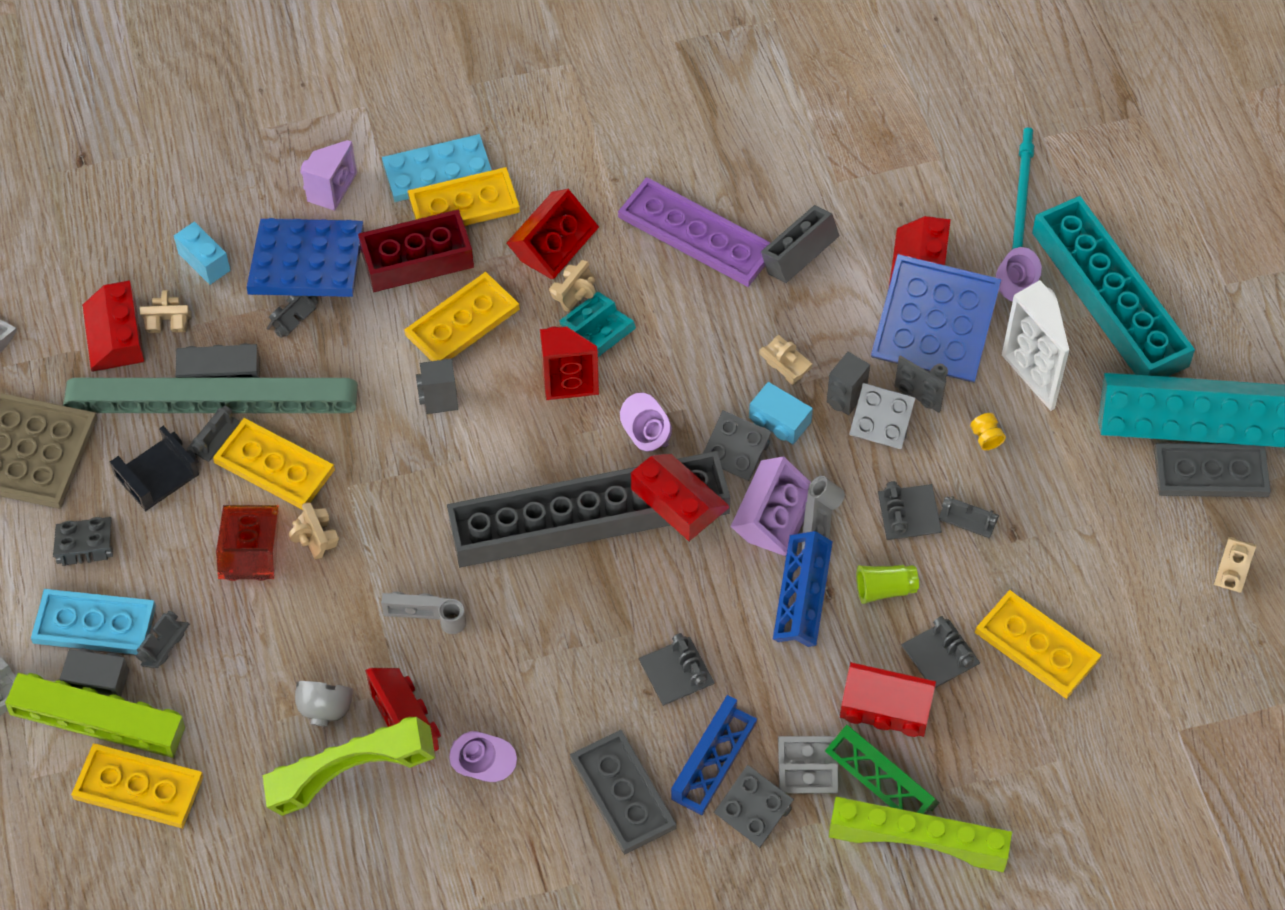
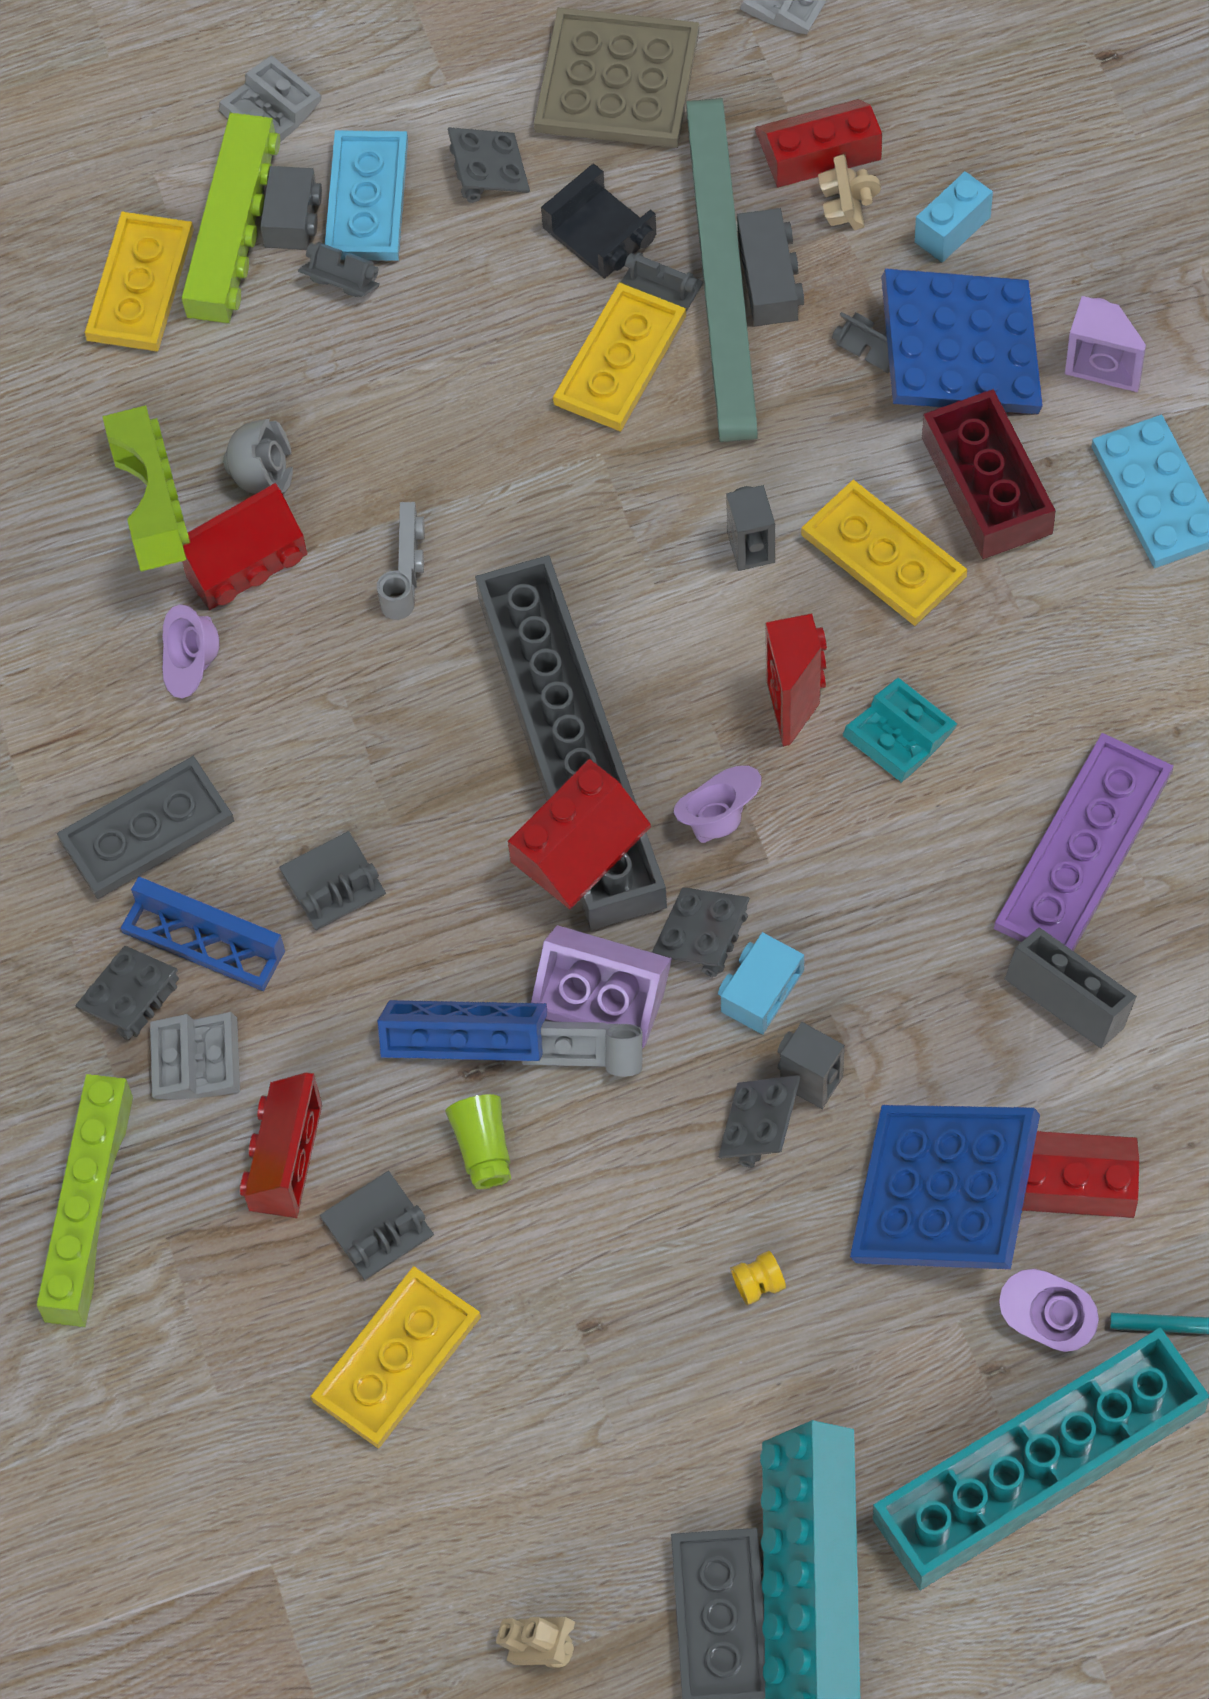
camera: 90 degrees right, 5 degrees up
(247, 542) = (494, 343): clear red slope -> none
(309, 531) = (503, 424): tan hips -> none
(476, 196) = (1099, 531): yellow plate -> none
(553, 233) = (1049, 652): red slope -> none
(577, 285) = (959, 690): tan hips -> none
(786, 359) = (855, 981): tan hips -> none
(886, 765) = (183, 1153): green fence -> none
(908, 511) = (610, 1173): dark grey hinge -> none
(919, 383) = (817, 1182): dark grey hinge -> none
(968, 517) = (609, 1256): dark grey hinge -> none
(1037, 341) = (889, 1323): white slope -> none

